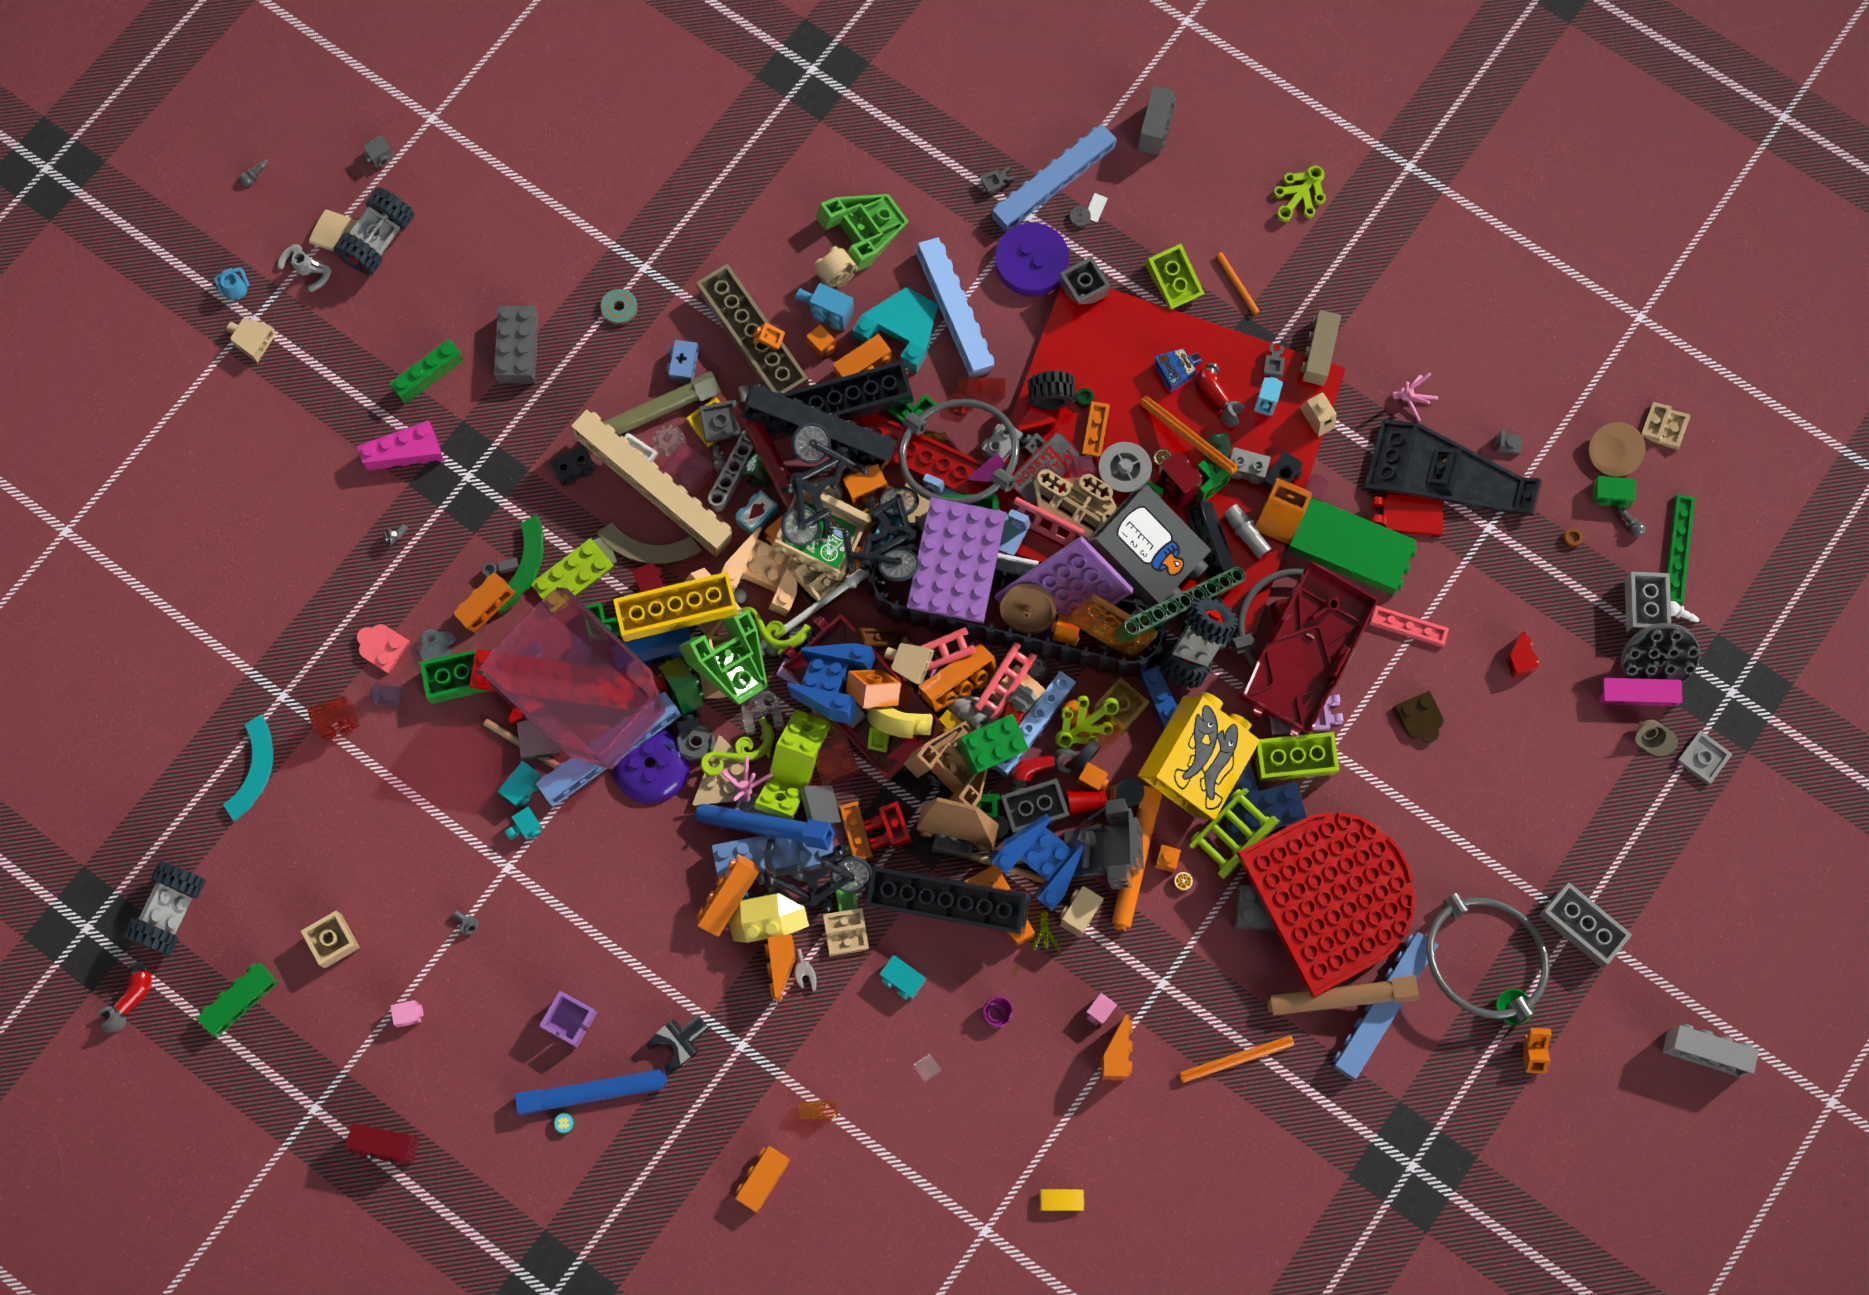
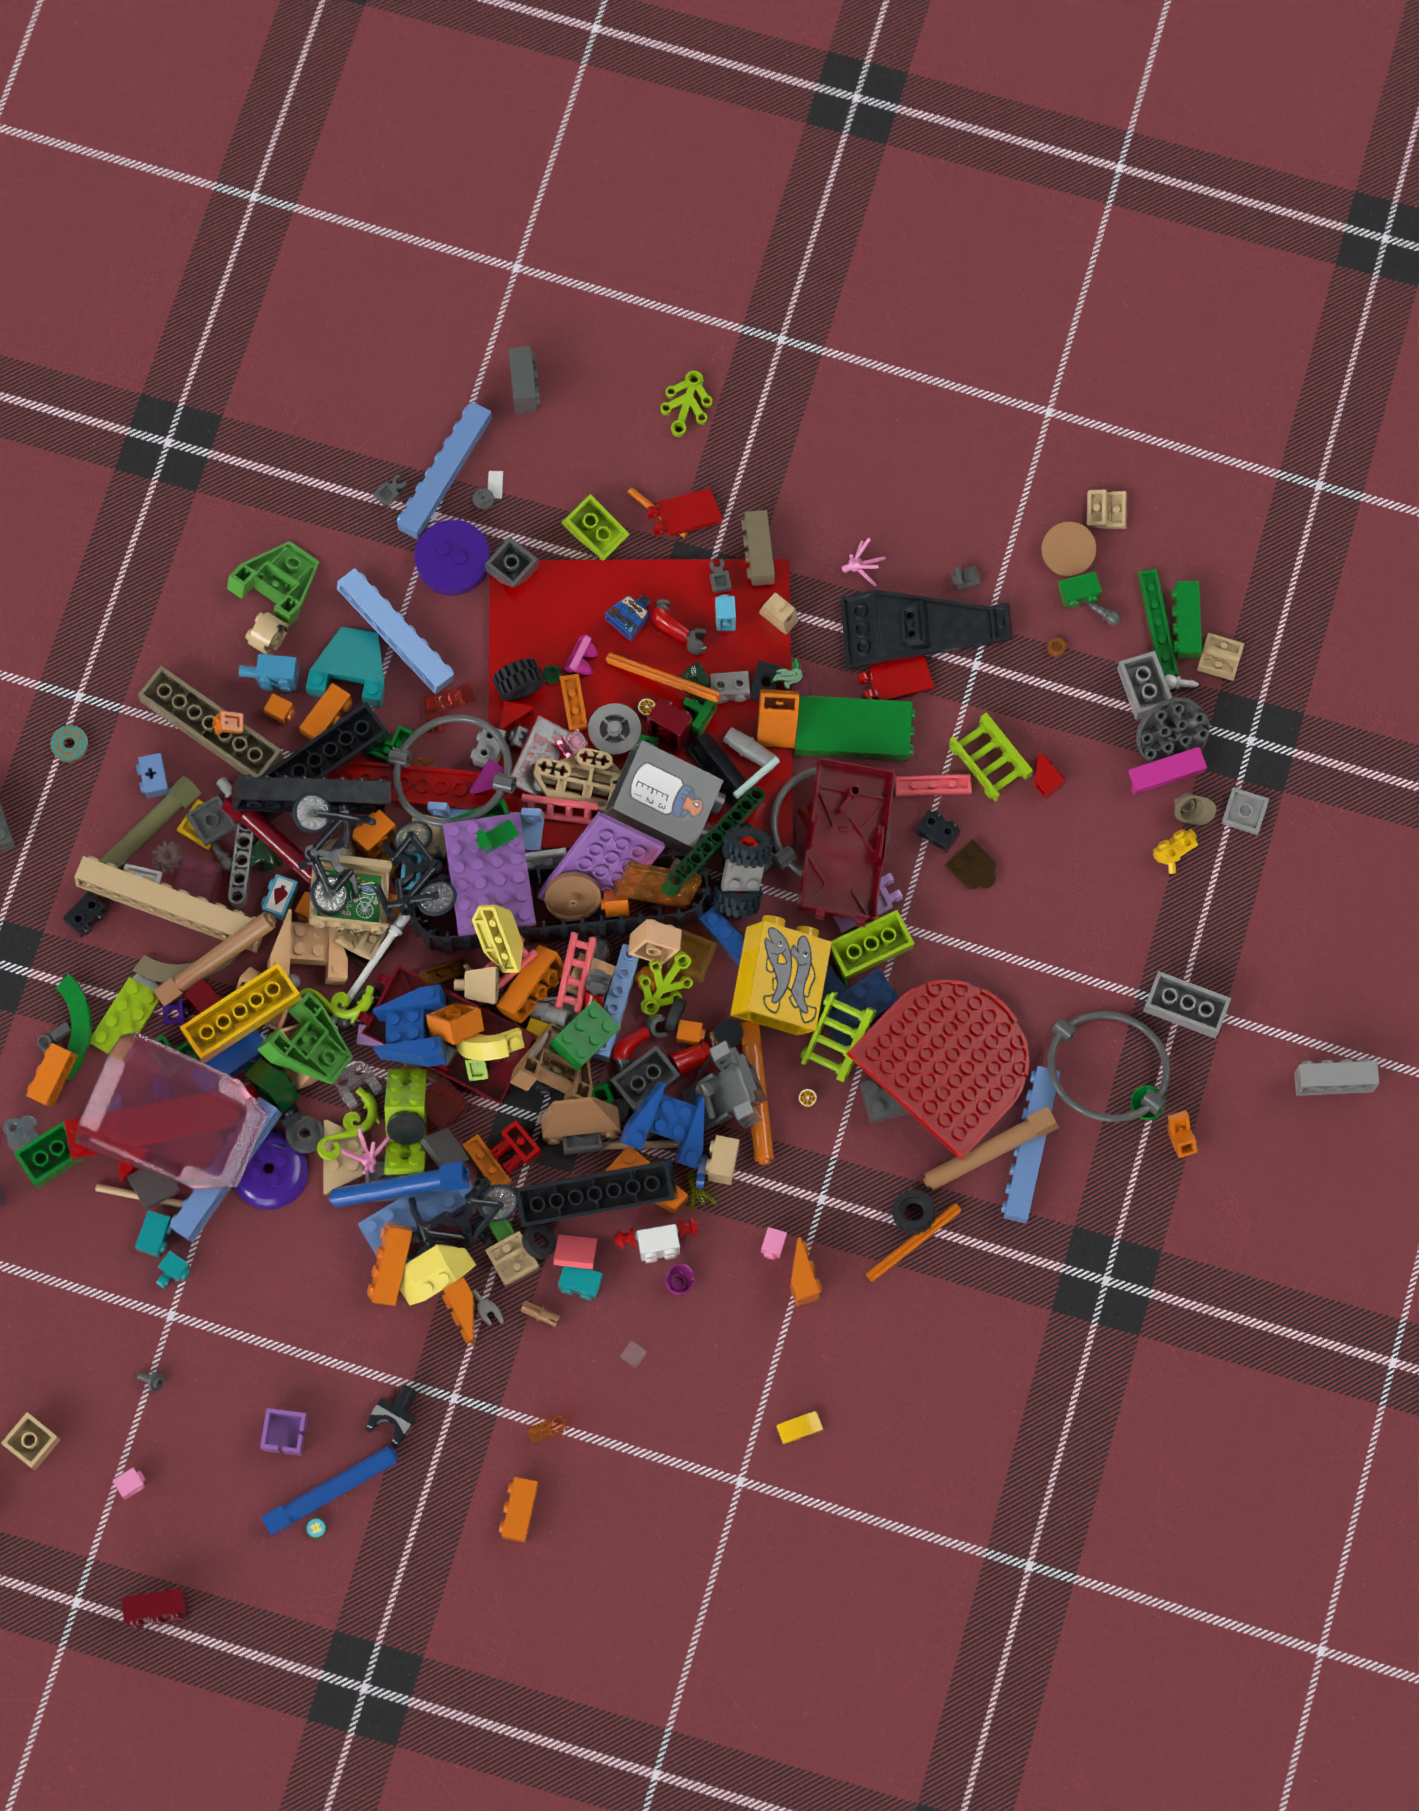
camera: 20 degrees left, 0 degrees up
(627, 587) = (182, 1010): none -> dark purple bracket
(628, 561) = (215, 958): none -> medium nougat brick
(790, 771) = (406, 1128): none -> black tile
(853, 995) = (540, 1313): none -> medium nougat axle
(867, 929) = (548, 1236): none -> black tyre
(907, 947) = (575, 1251): none -> coral tile
(944, 621) = (499, 937): none -> light yellow wedge
(975, 527) = (496, 837): none -> green bracket
(990, 967) = (657, 1241): none -> white brick
(1056, 915) = (701, 1171): none -> blue tile
(1090, 679) = (654, 941): none -> light nougat brick
(1111, 392) = (576, 662): none -> dark pink tile
(1167, 858) = (785, 1082): orange brick -> none
(1242, 559) = (756, 777): none -> light aqua bar
(1247, 1014) = (910, 1197): none -> black tyre
(1263, 292) = (685, 513): none -> red tile
(1306, 475) = (787, 676): none -> green piece
(1398, 671) = (938, 831): none -> black brick
(1487, 606) = (1009, 754): none -> lime fence
(1620, 769) = (1171, 850): none -> yellow brick
(1709, 555) = (1188, 619): none -> green brick
(1729, 602) = (1220, 656): none -> tan slope

